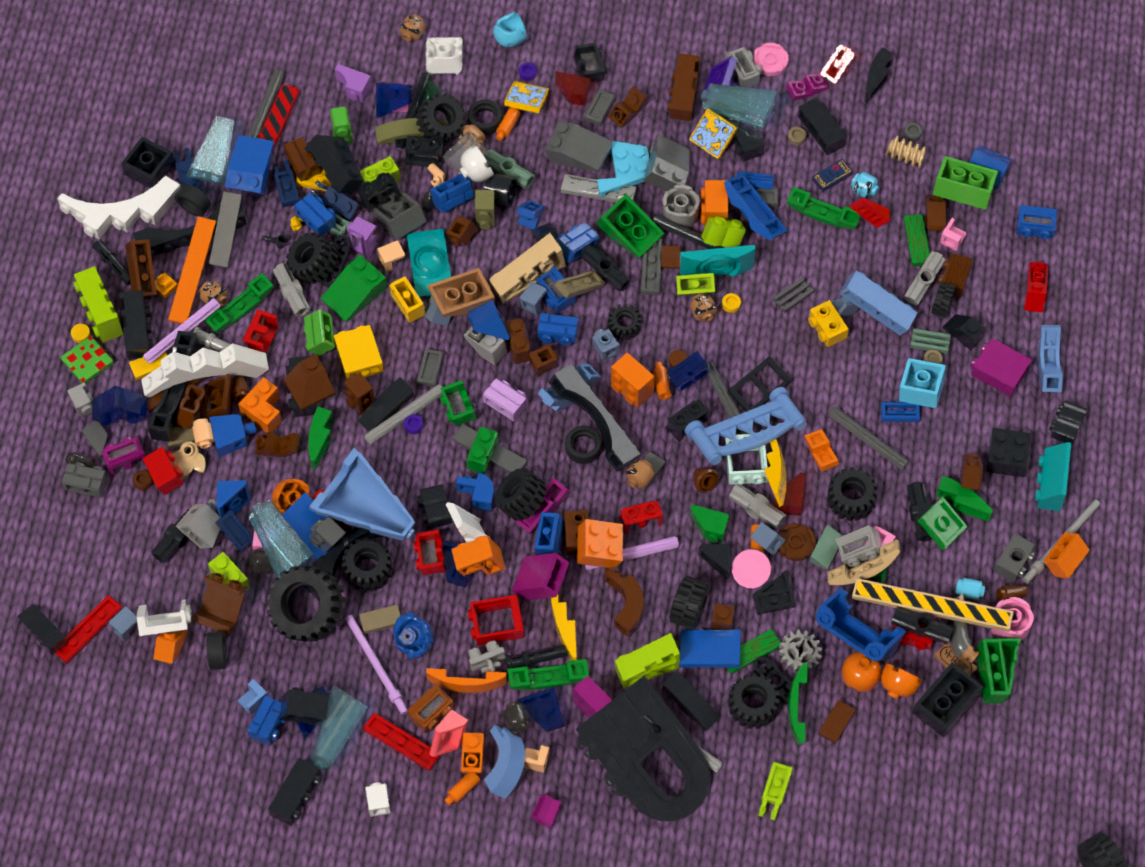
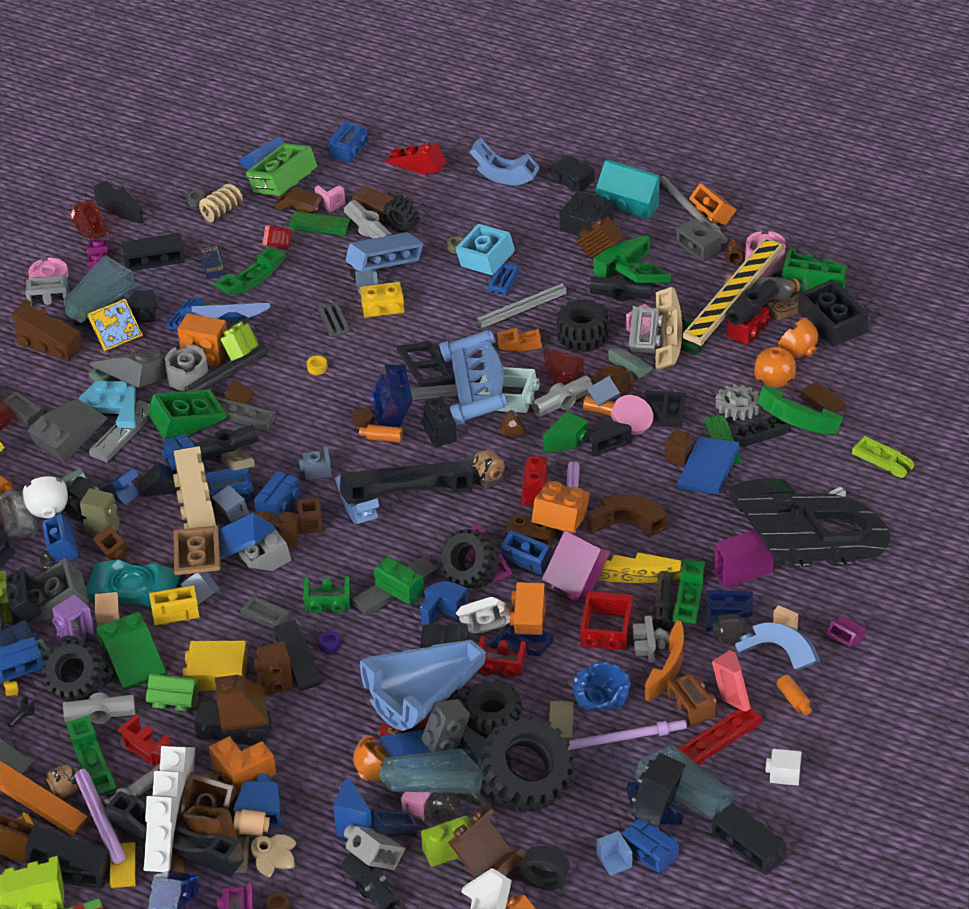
camera: 70 degrees left, 20 degrees down
(163, 470) = (280, 873): red brick -> none
(274, 445) = (299, 763): reddish brown slope -> none
(319, 435) = (306, 723): green slope -> none
(401, 415) = (314, 646): light grey axle -> none
(439, 175) = (26, 552): light nougat arm -> none
(472, 752) = (761, 671): orange slope -> none
(505, 399) = (341, 556): lavender brick -> none
(583, 458) = (427, 519): black tyre -> none
(627, 312) = (296, 436): black tyre -> none
(629, 108) = (37, 384): reddish brown slope -> none
(632, 380) = (375, 445): orange brick -> none
(648, 661) = (706, 508): lime wedge -> none
(689, 602) = (656, 458): black tyre -> none
(695, 284) = (286, 377): lime brick -> none
(703, 307) = (313, 382): medium nougat head -> none
(719, 261) = (269, 356): teal slope -> none
(722, 73) = (51, 298): dark purple tile -> none
(757, 686) = (781, 445): black tyre -> none
(776, 472) = (543, 363): yellow slope -> none
(796, 136) = (150, 275): dark tan tile -> none
(835, 618) = (724, 357): blue windscreen -> none
(865, 185) = (240, 238): medium azure head -> none
(930, 338) = (433, 240): sand green tile -> none
(965, 330) = (439, 212): black slope -> none
(970, 588) = (717, 274): medium azure brick -> none
(1000, 366) = (492, 200): magenta brick -> none

